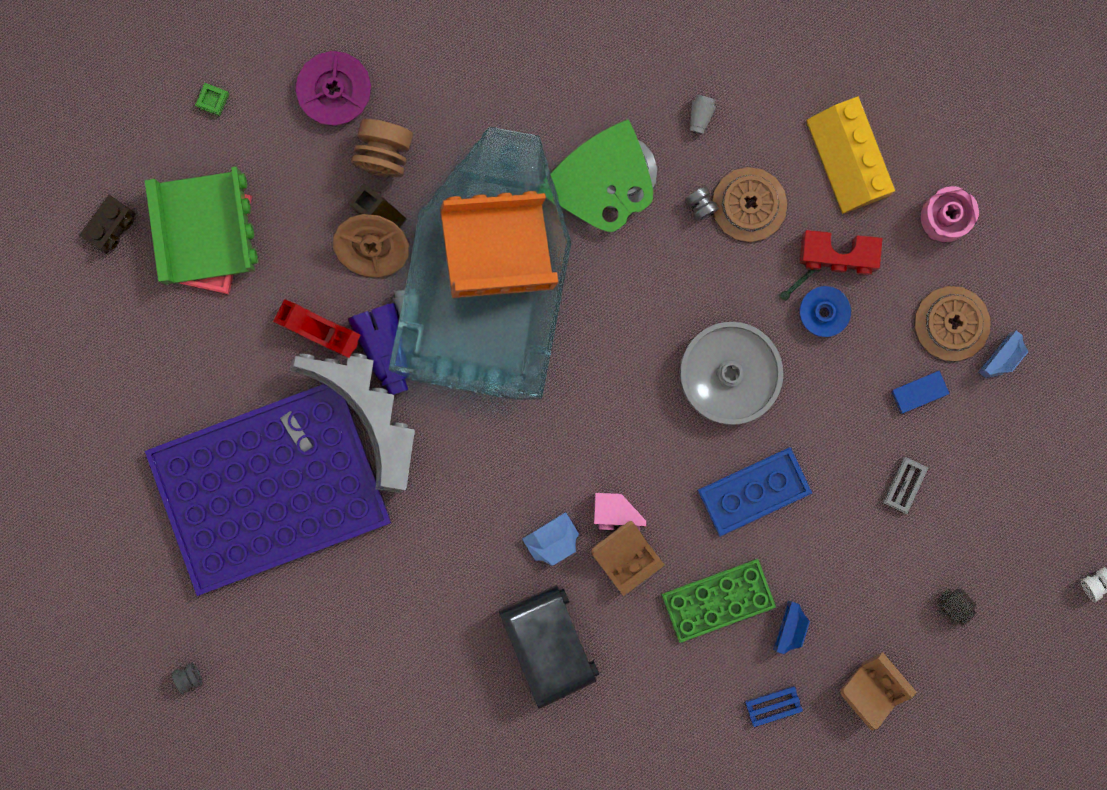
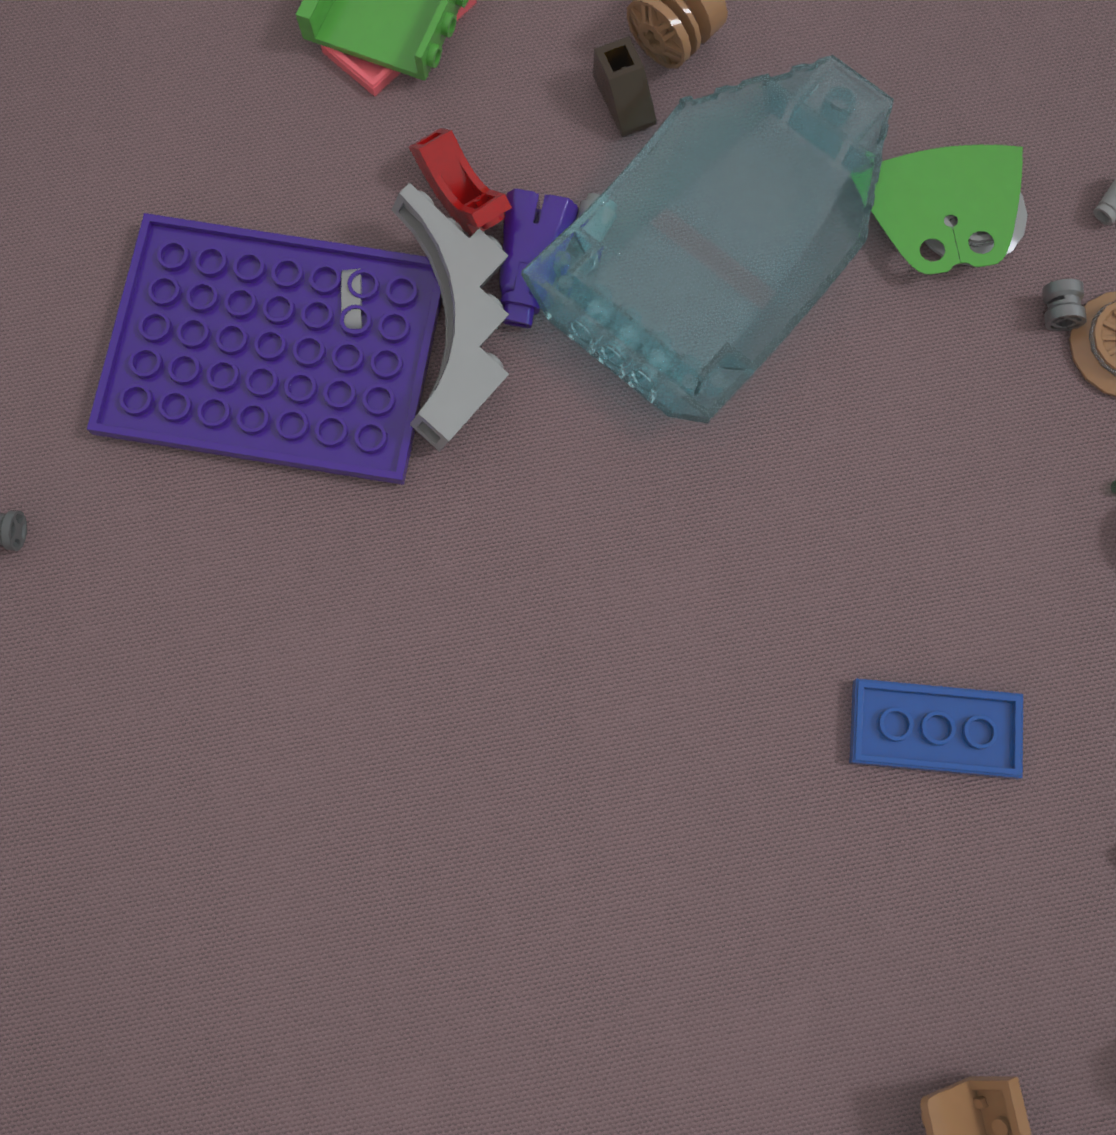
camera: 30 degrees right, 10 degrees down
(379, 259) = (569, 103): medium nougat piece -> none
(496, 244) = (761, 194): orange panel -> none
(548, 646) = (516, 772): black windscreen -> none
(553, 541) = (610, 629): medium blue slope -> none
(615, 510) = (724, 640): bright pink slope -> none
(627, 557) = (702, 709): medium nougat bracket -> none
(718, 600) = (801, 854): bright green tile -> none
(731, 373) = (992, 542): light grey dish -> none
(792, 629) = (892, 959): blue slope -> none
(794, 700) = (837, 1071): blue tile -> none

